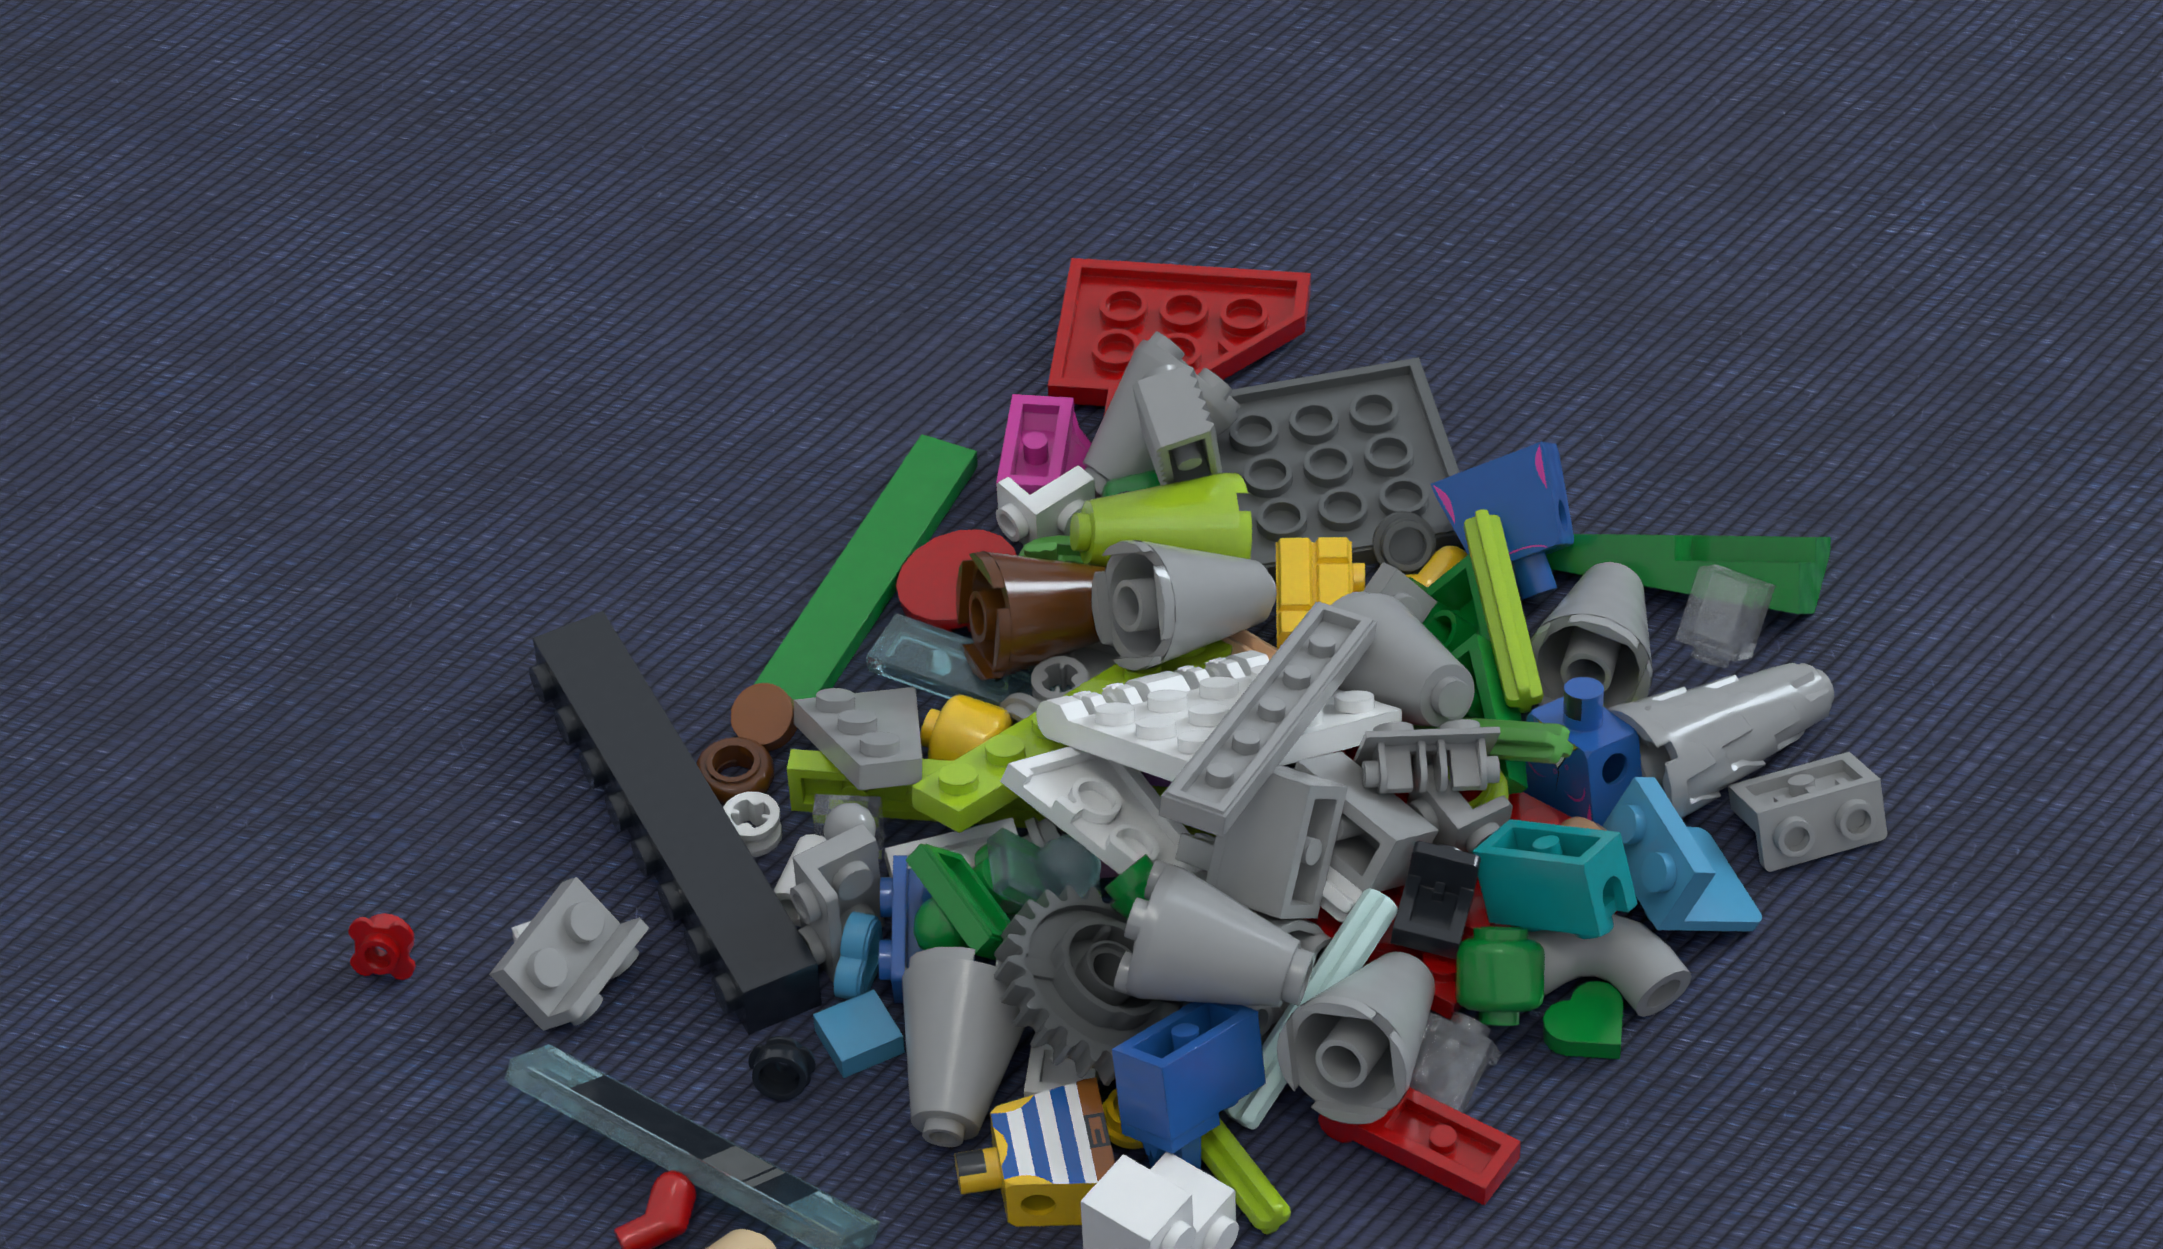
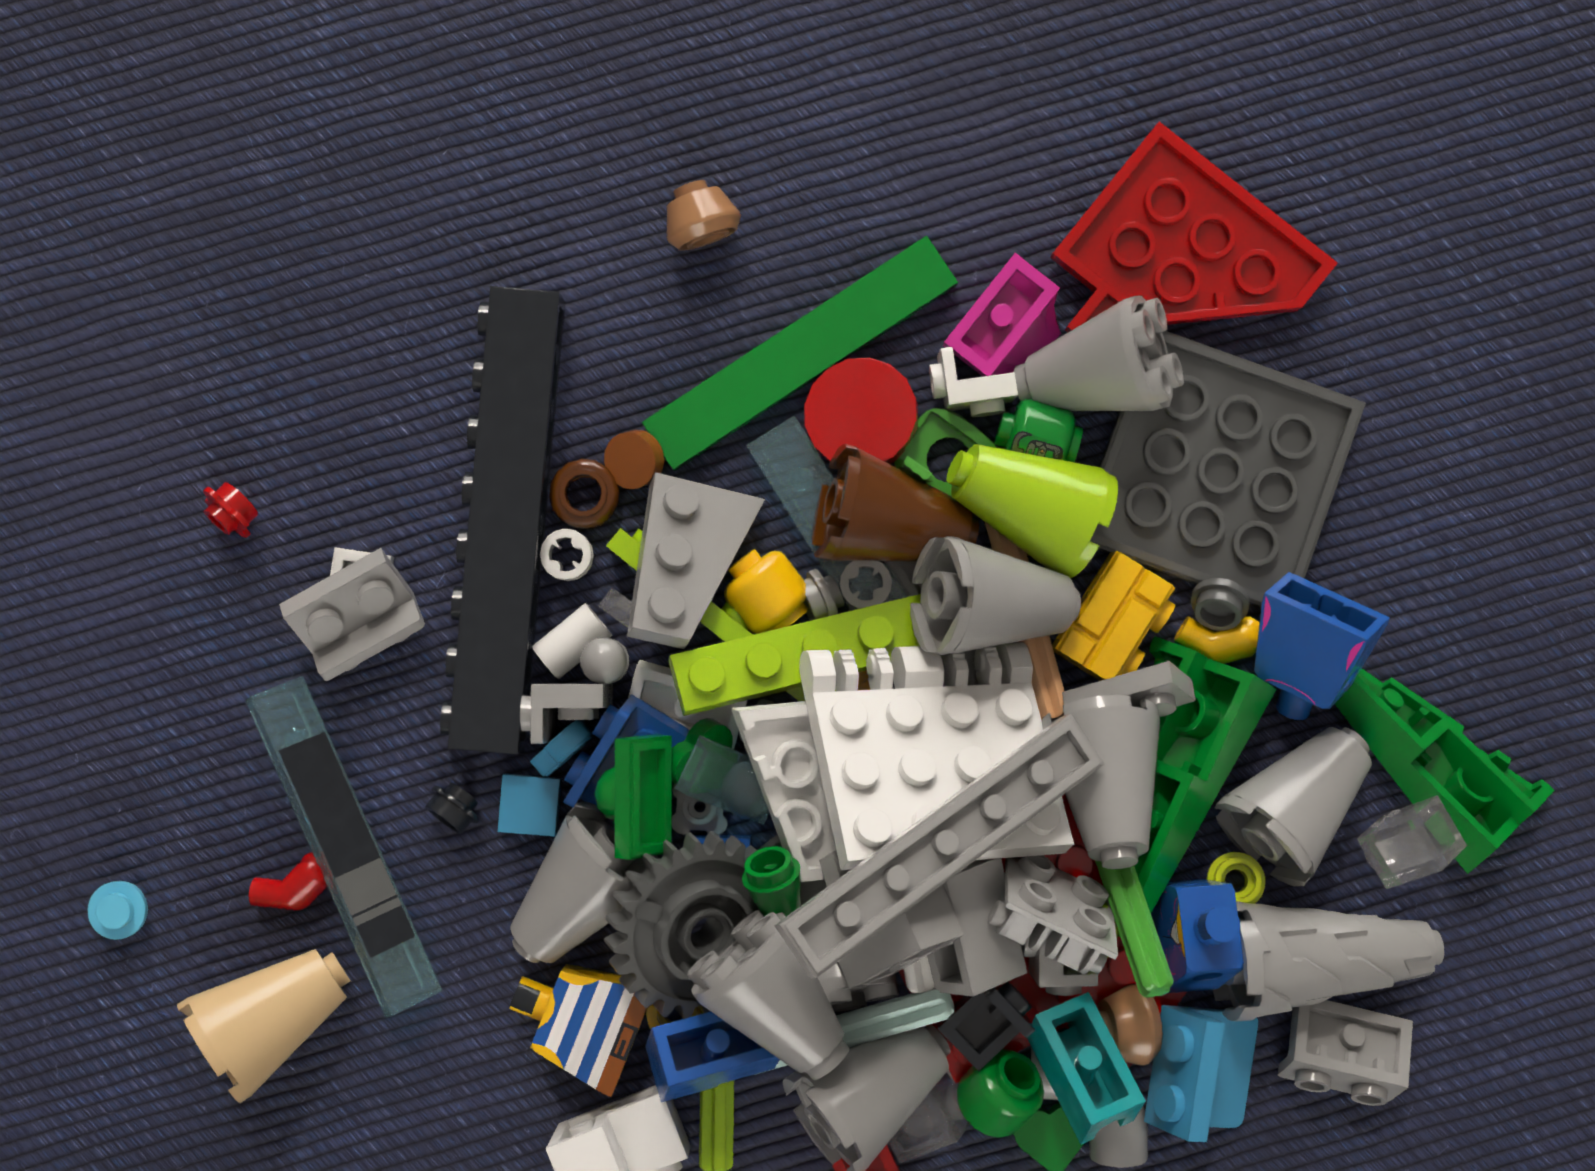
camera: 25 degrees right, 40 degrees up
(698, 515) = (700, 216): none -> medium nougat cone
(1176, 424) = (1087, 438): light grey brick -> none
(1503, 611) = (1233, 758): lime axle -> none

